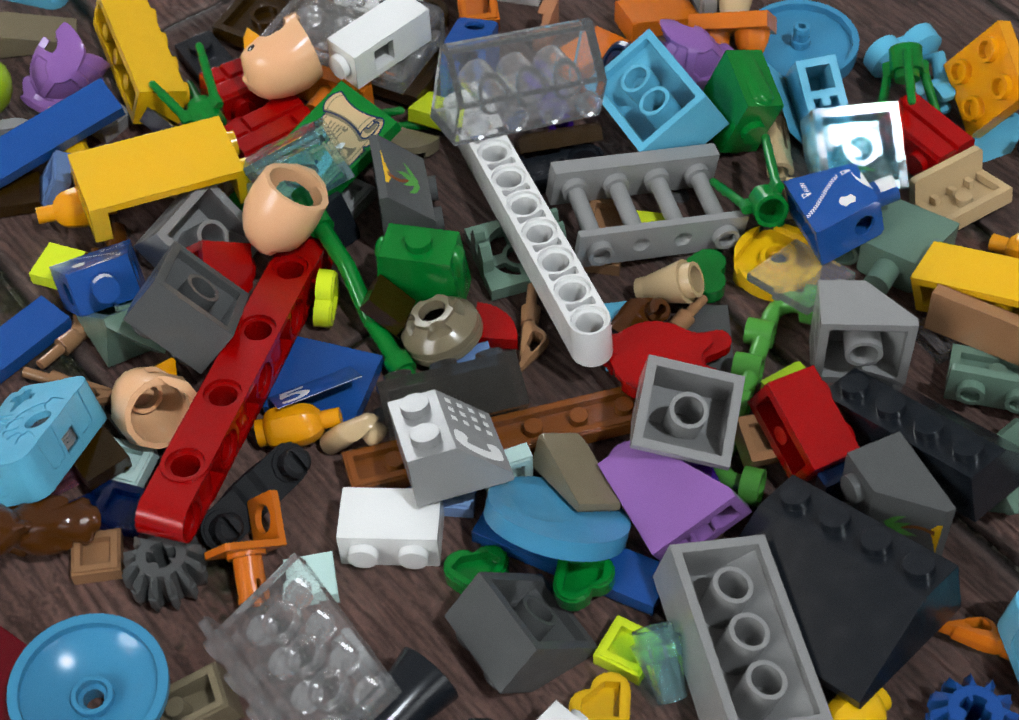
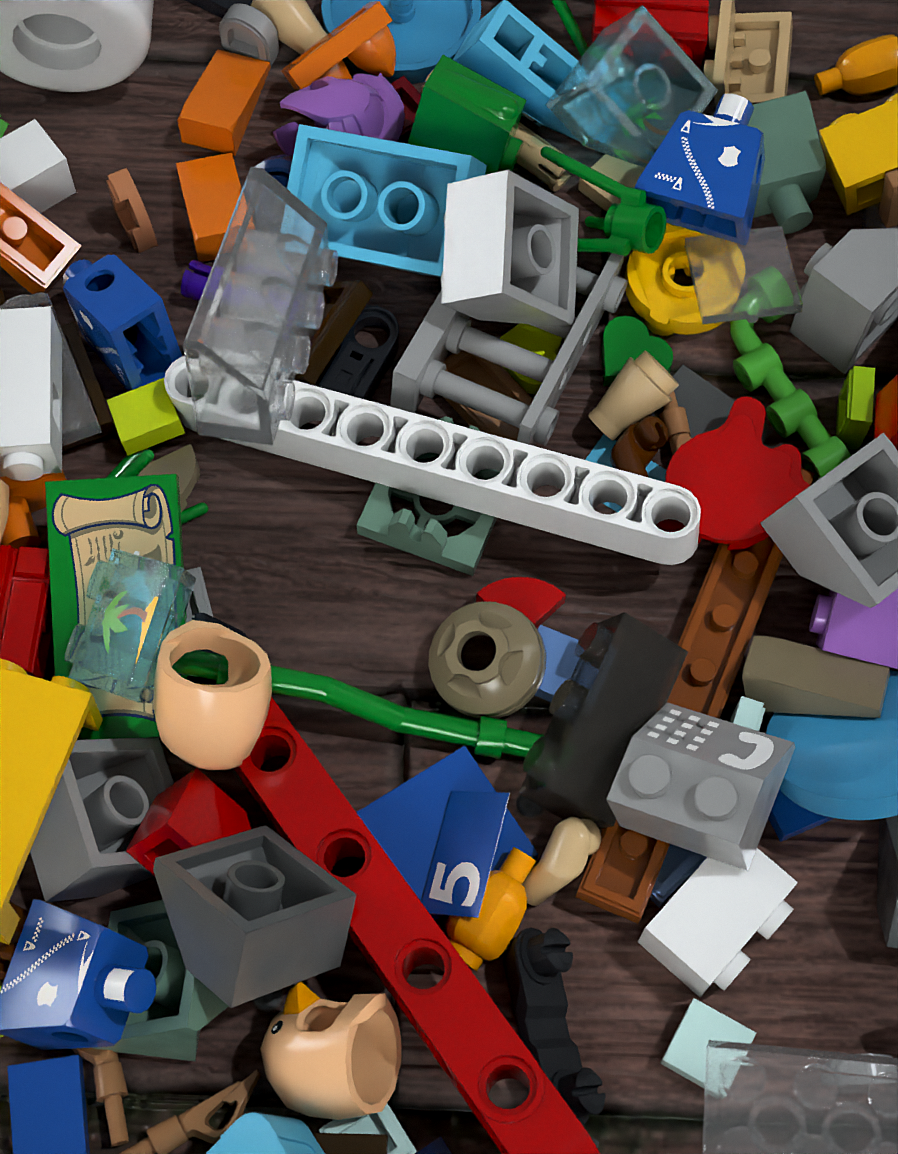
camera: 55 degrees left, 15 degrees up
(248, 555) = (634, 1086): orange bracket -> none
(326, 298) = (331, 744): neon yellow tile -> none
(387, 305) = (410, 687): dark brown tile -> none
(403, 187) = (268, 556): dark grey slope -> none
(423, 261) = (388, 613): green torso -> none
(464, 565) = (832, 868): green tile -> none
(530, 331) = (556, 572): medium nougat hand -> none
(675, 156) = (509, 251): none -> light grey slope

